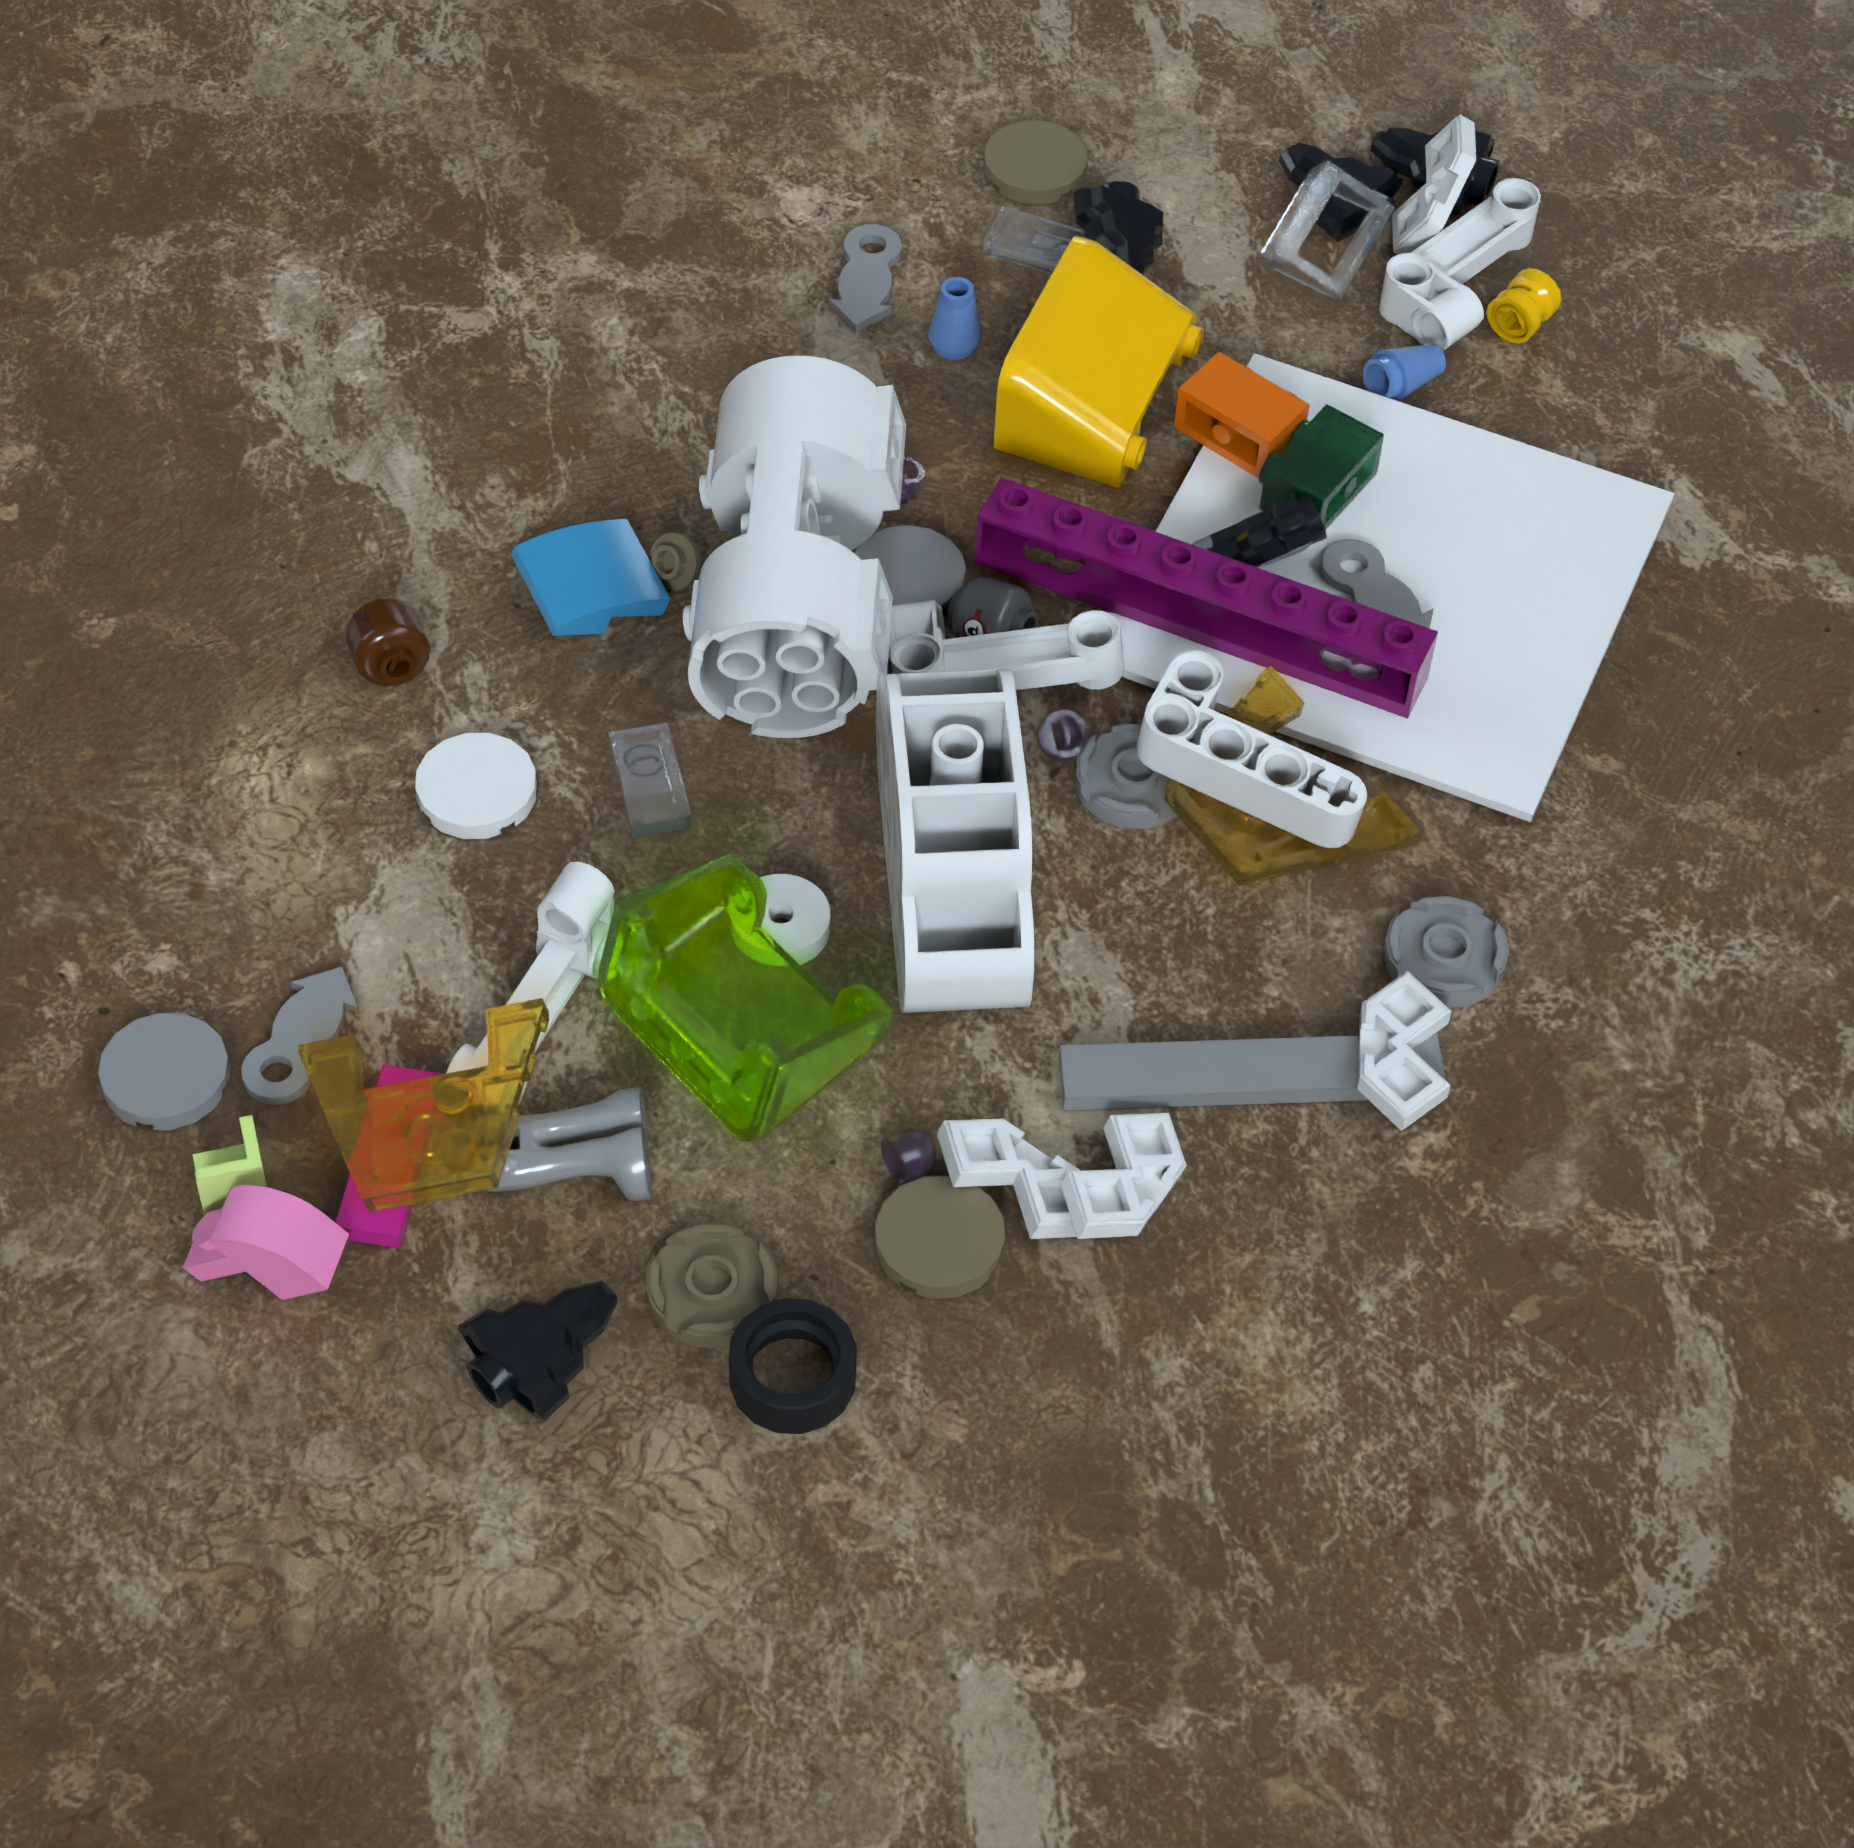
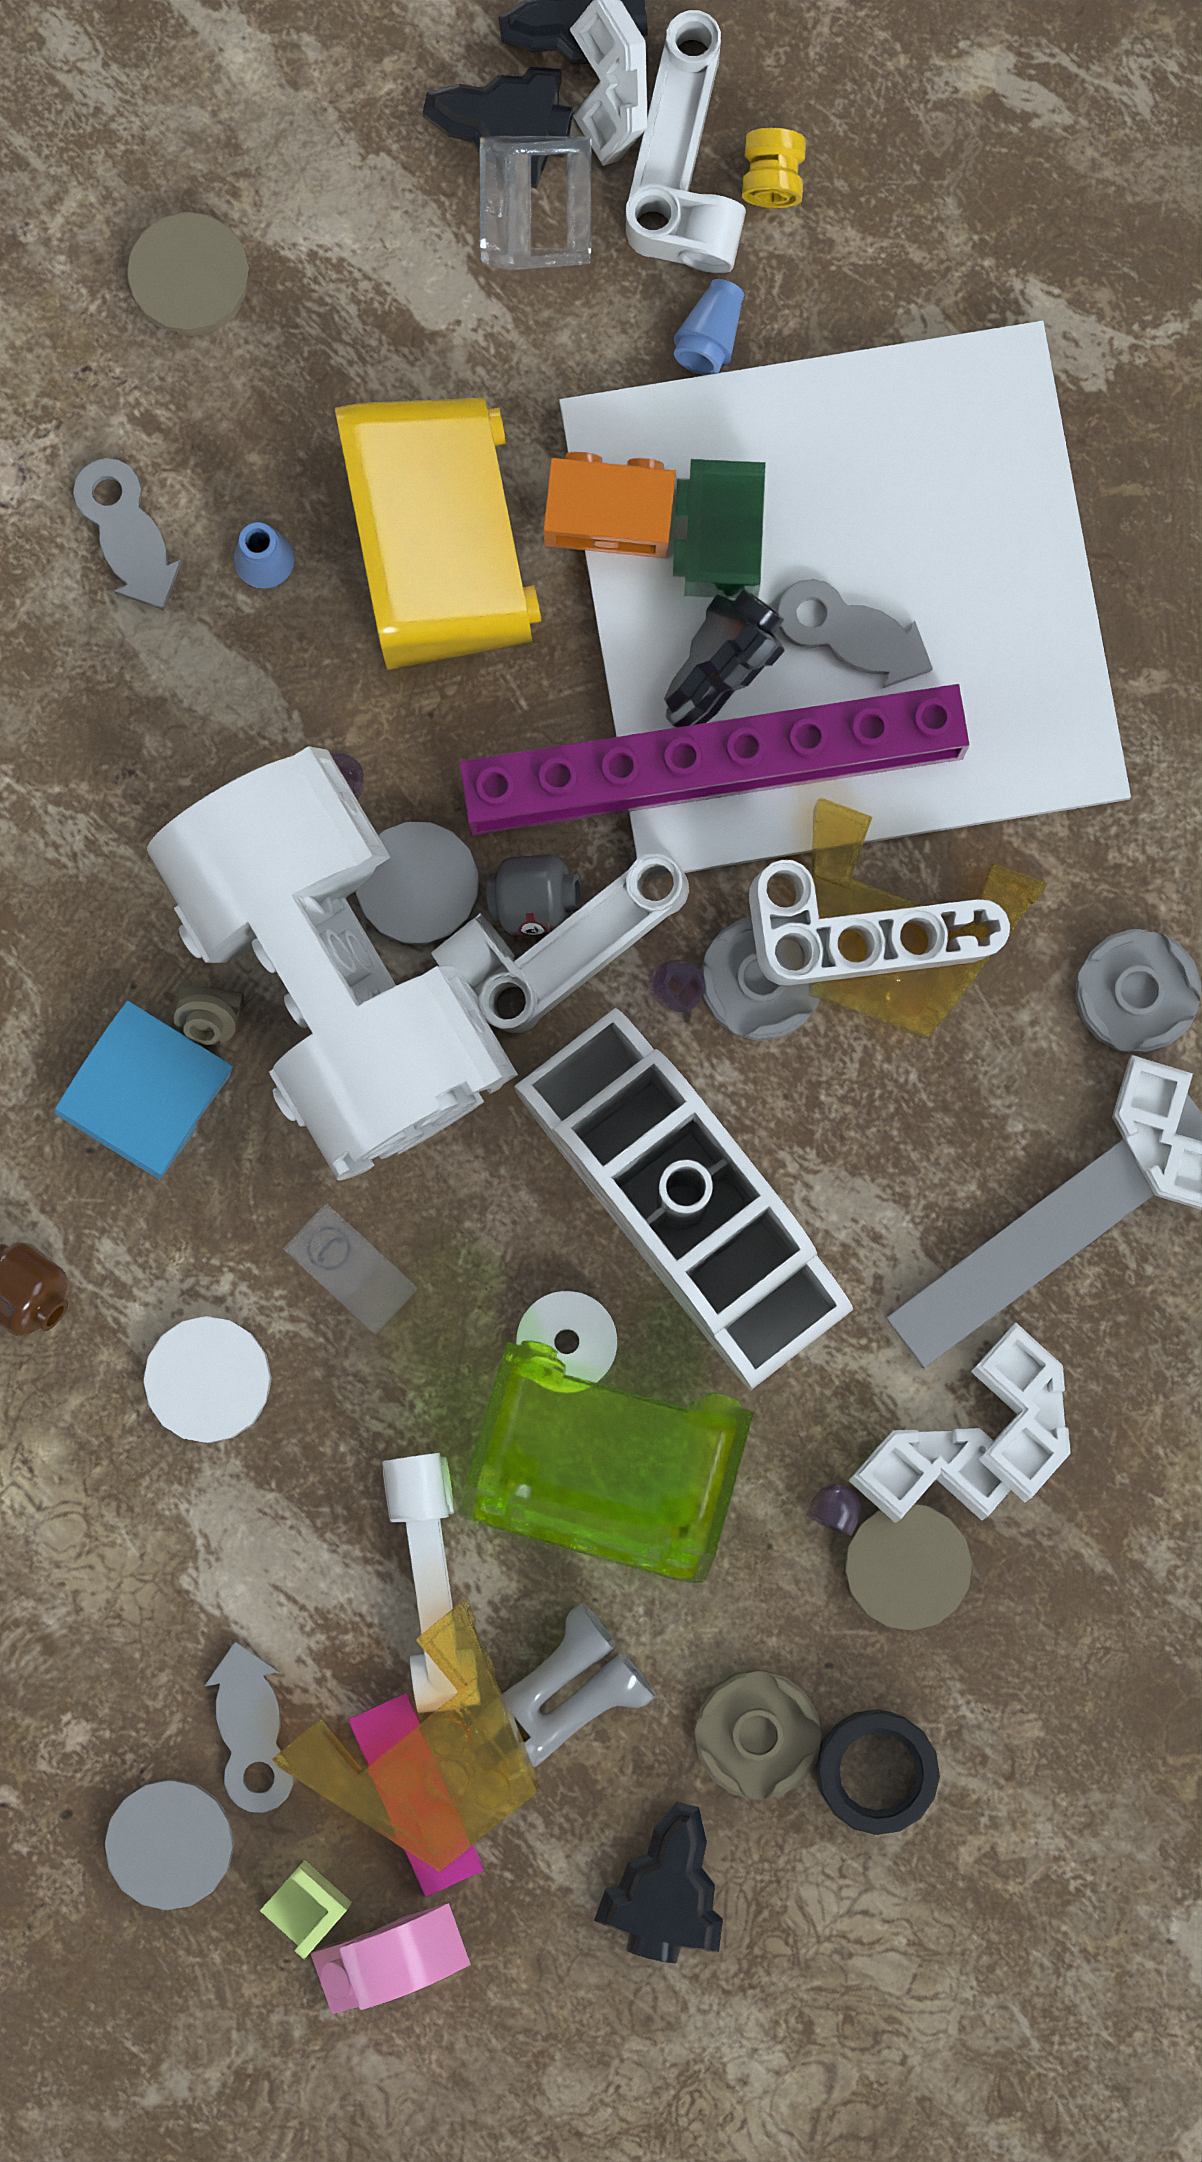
camera: 30 degrees left, 30 degrees up
(1028, 239) = (267, 381): clear tile -> none
(1120, 222) = (345, 337): black rock -> none

